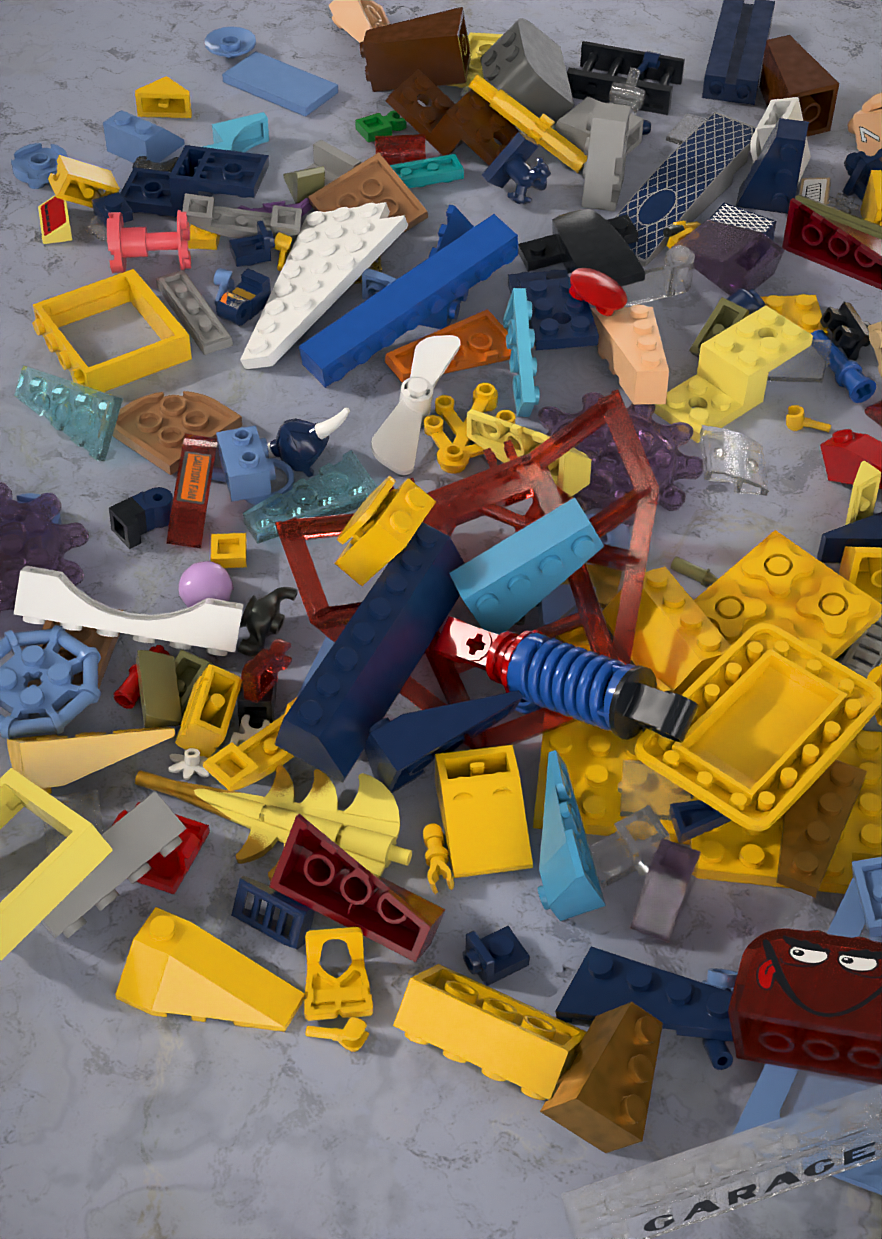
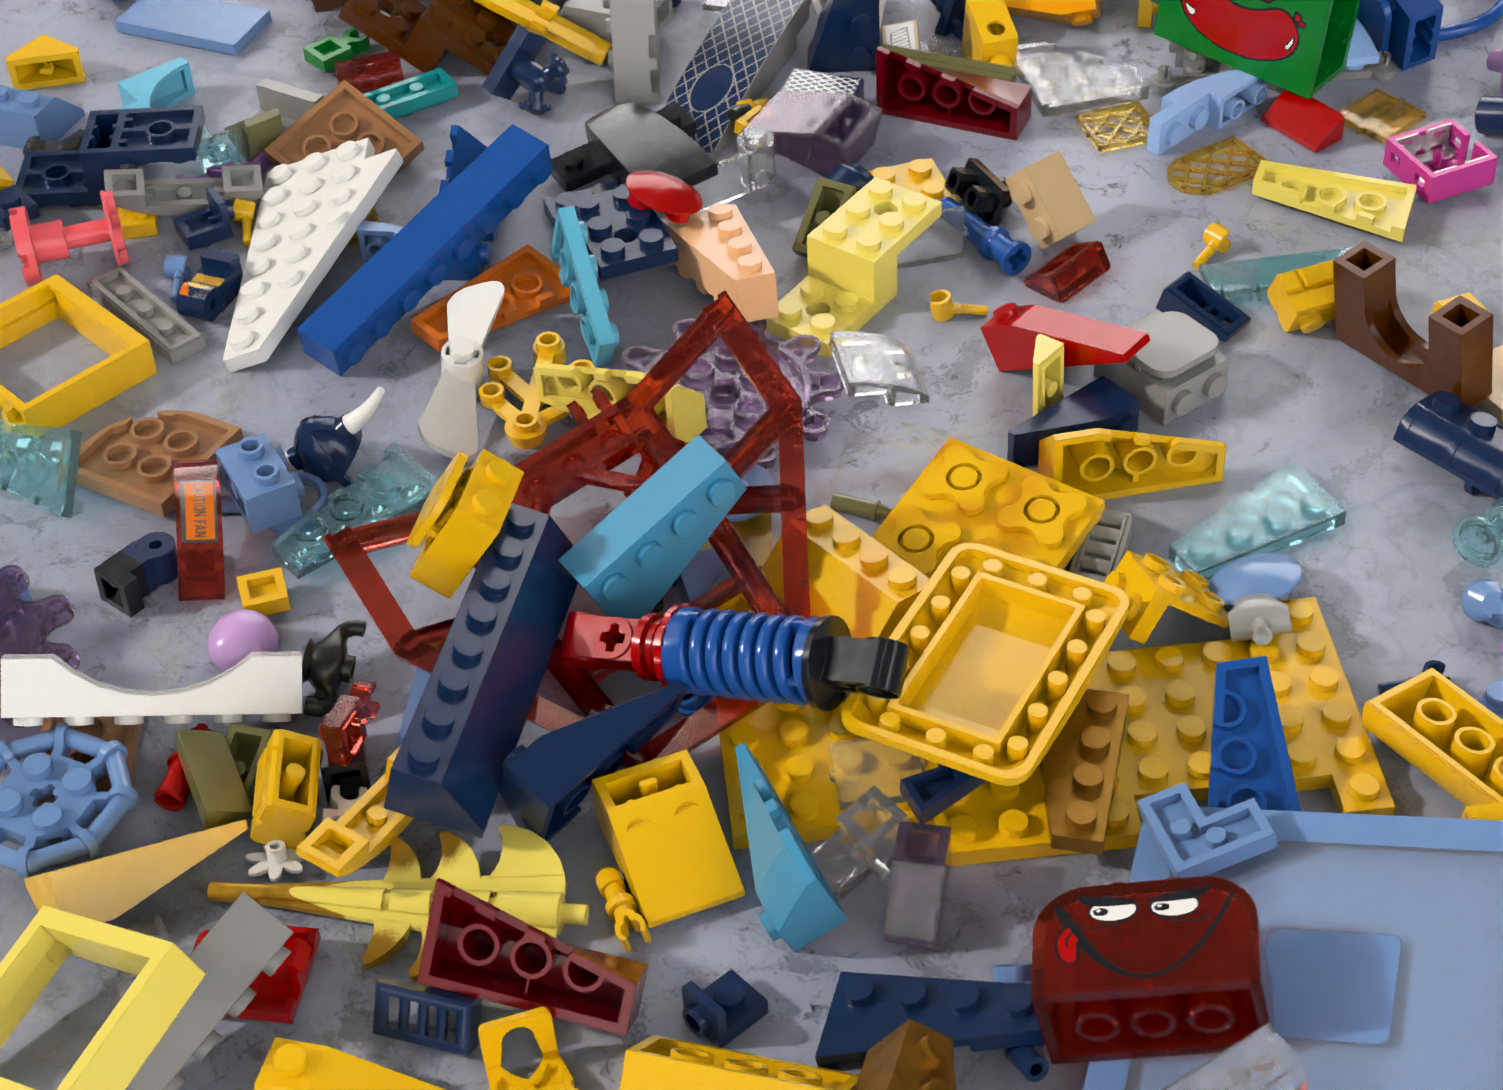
camera: 10 degrees left, 5 degrees down
(274, 189) = (217, 148): none -> clear light blue bracket

